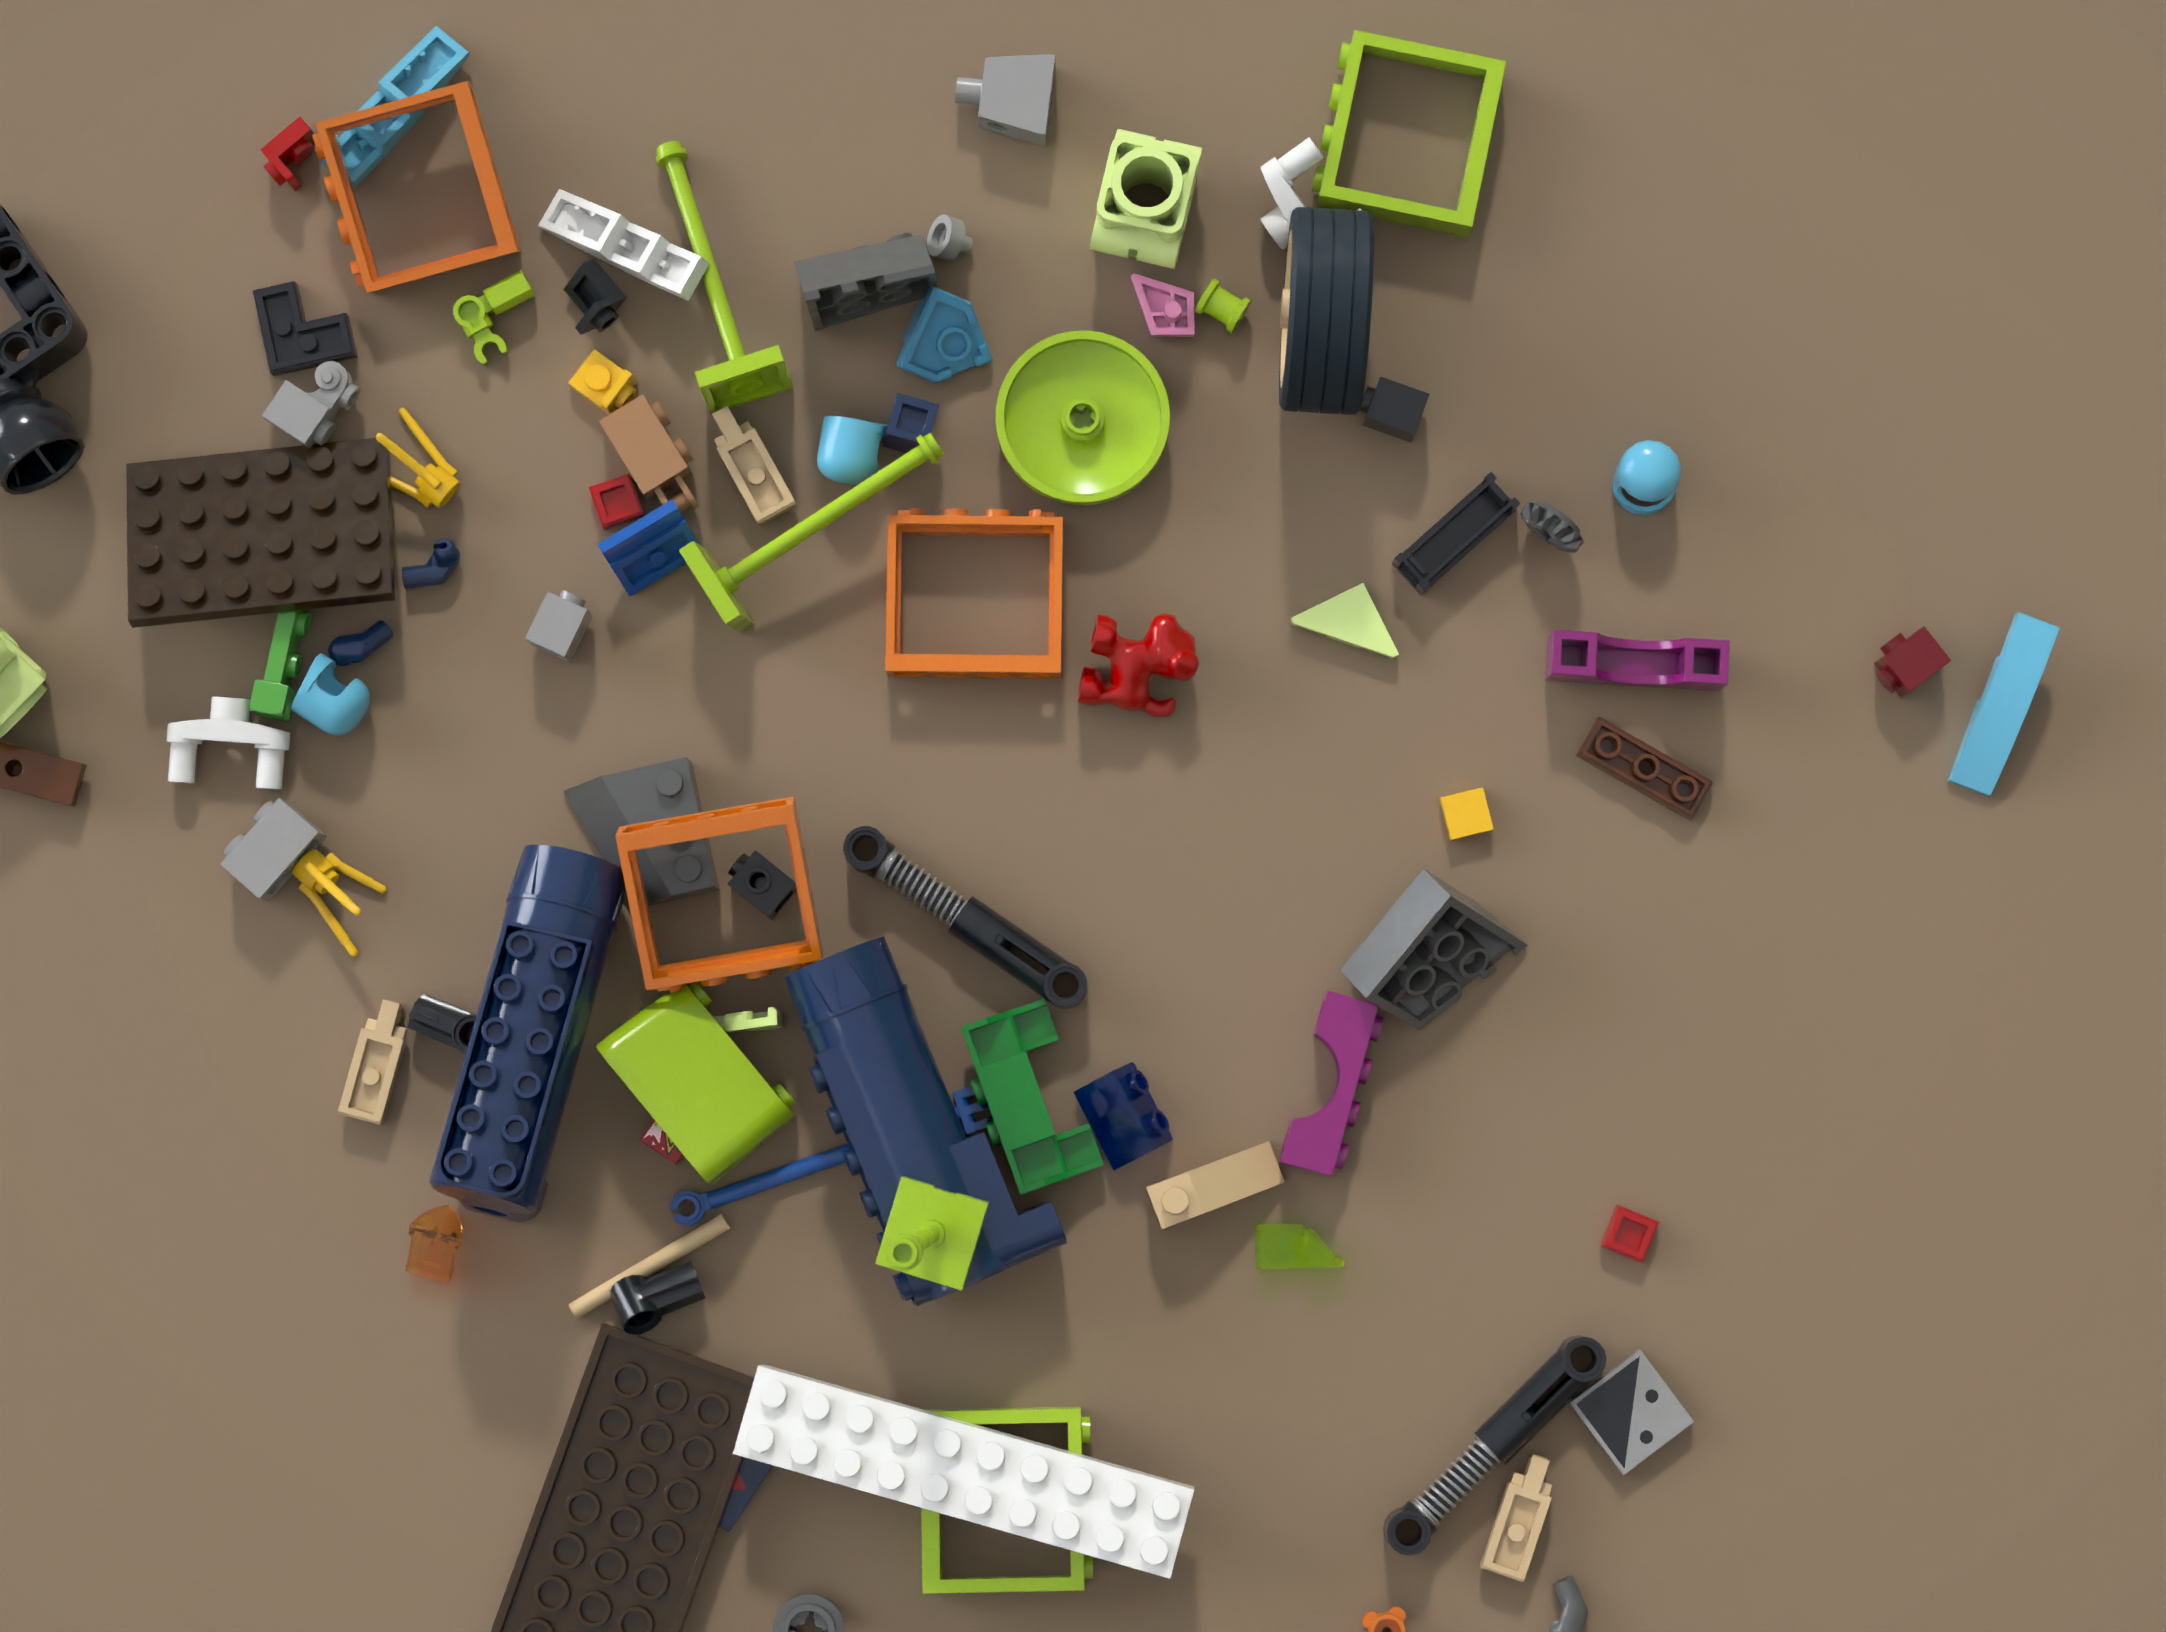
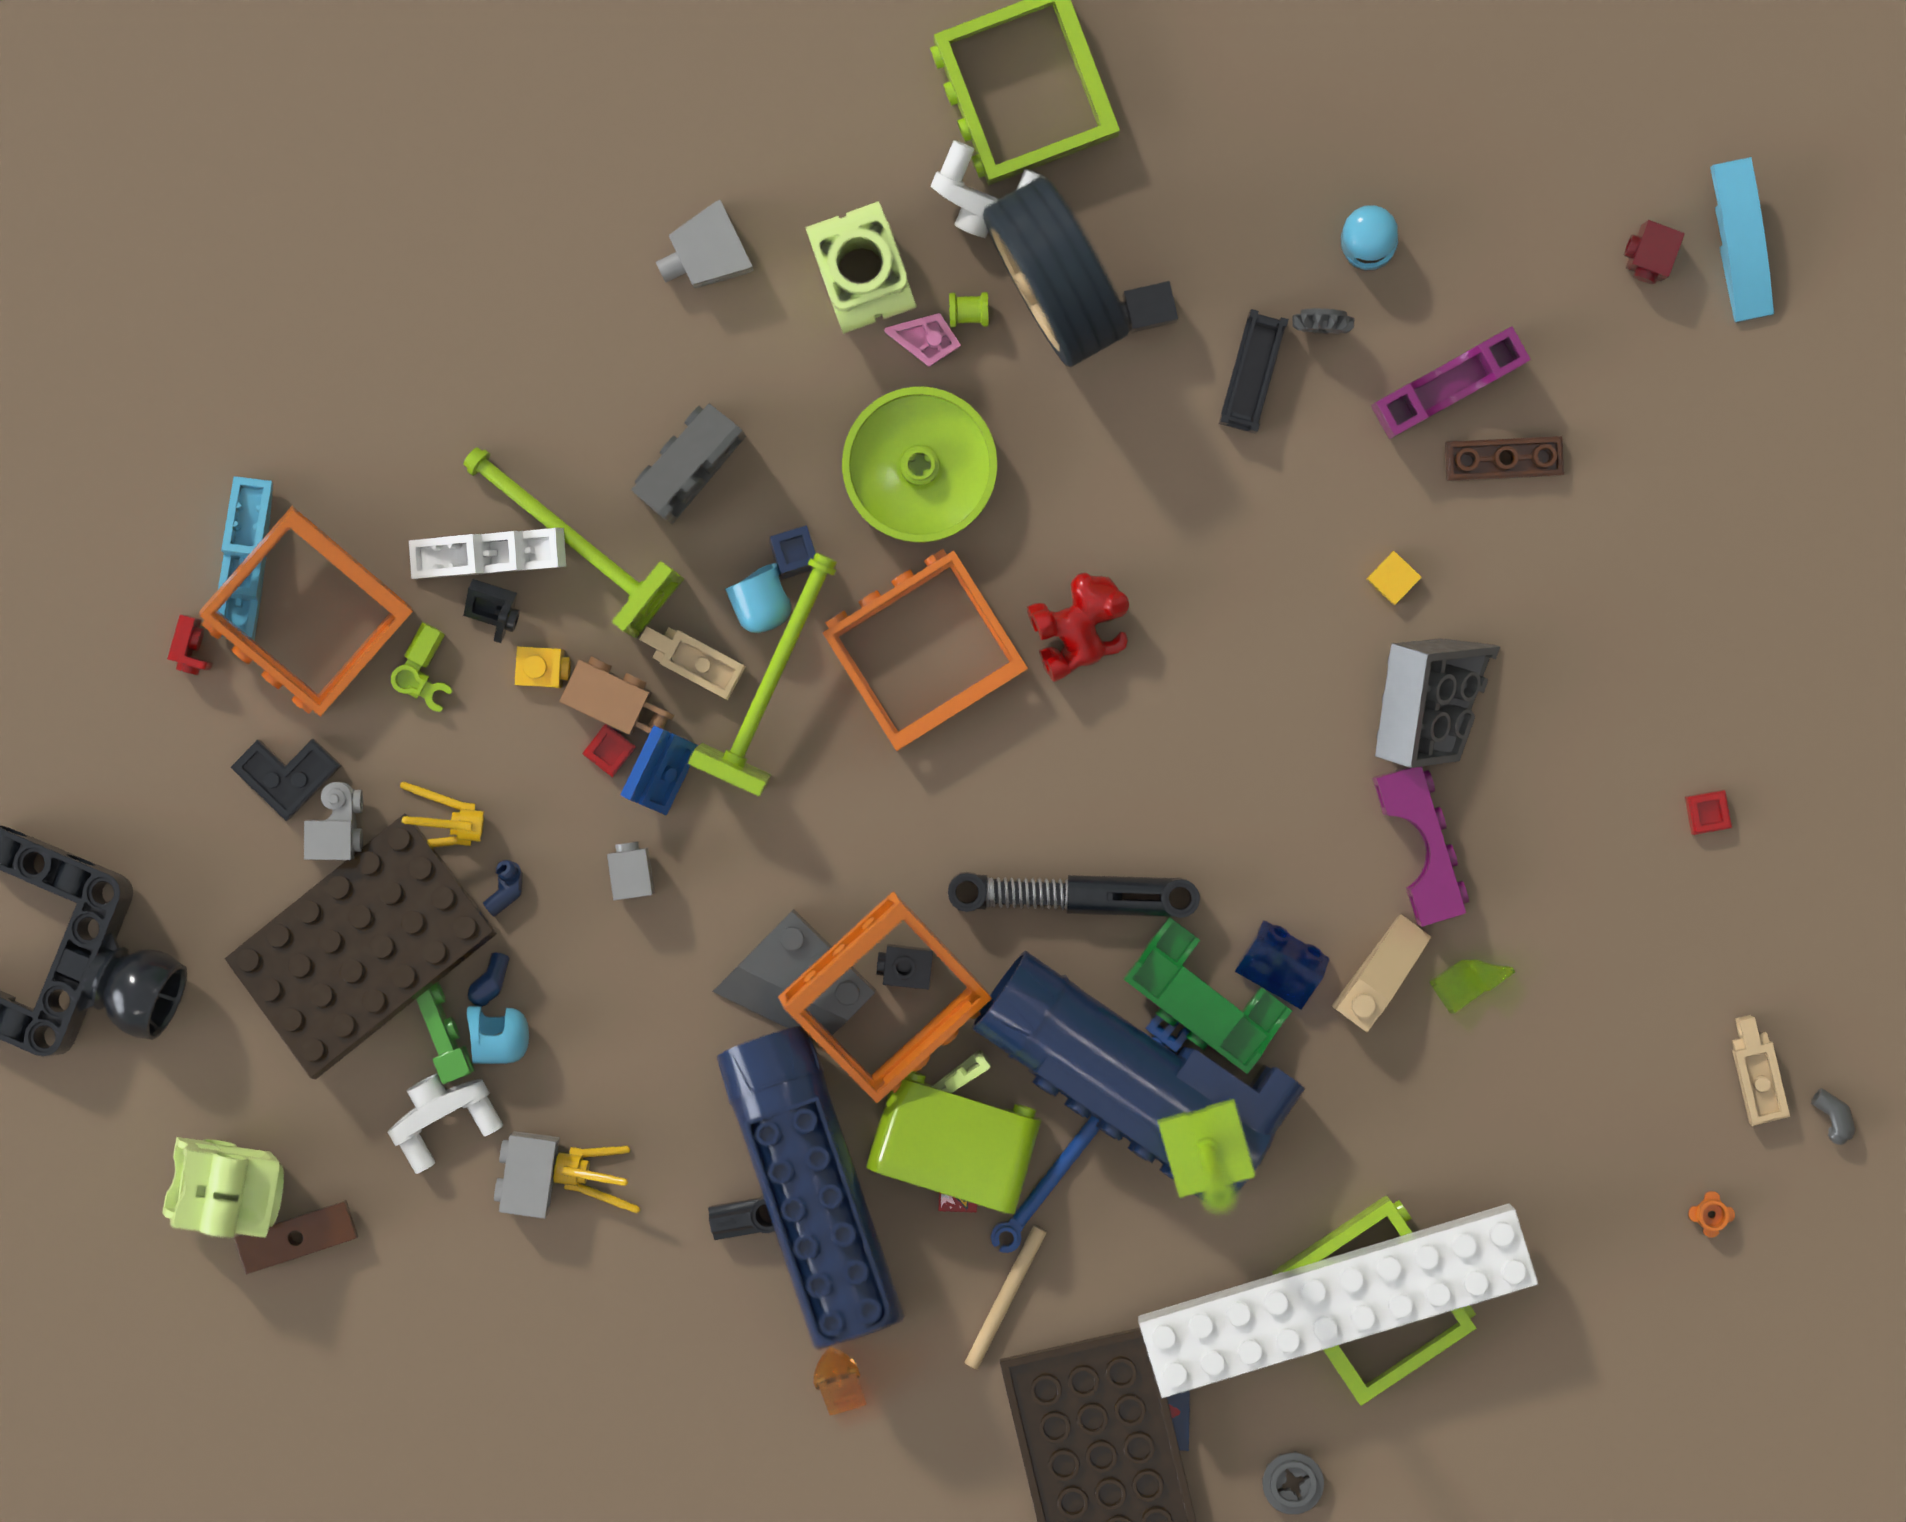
camera: 30 degrees left, 5 degrees up
(375, 1065) = (708, 1282): tan hinge -> none
(644, 1300) = (1020, 1325): black piece -> none
(942, 338) = (773, 470): dark azure plate -> none
(948, 238) = (728, 391): light grey tile -> none
(1350, 620) = (1216, 487): yellowish green tile -> none
(1498, 1440) = (1707, 1025): black piece -> none
(1631, 1412) = (1790, 942): tile -> none

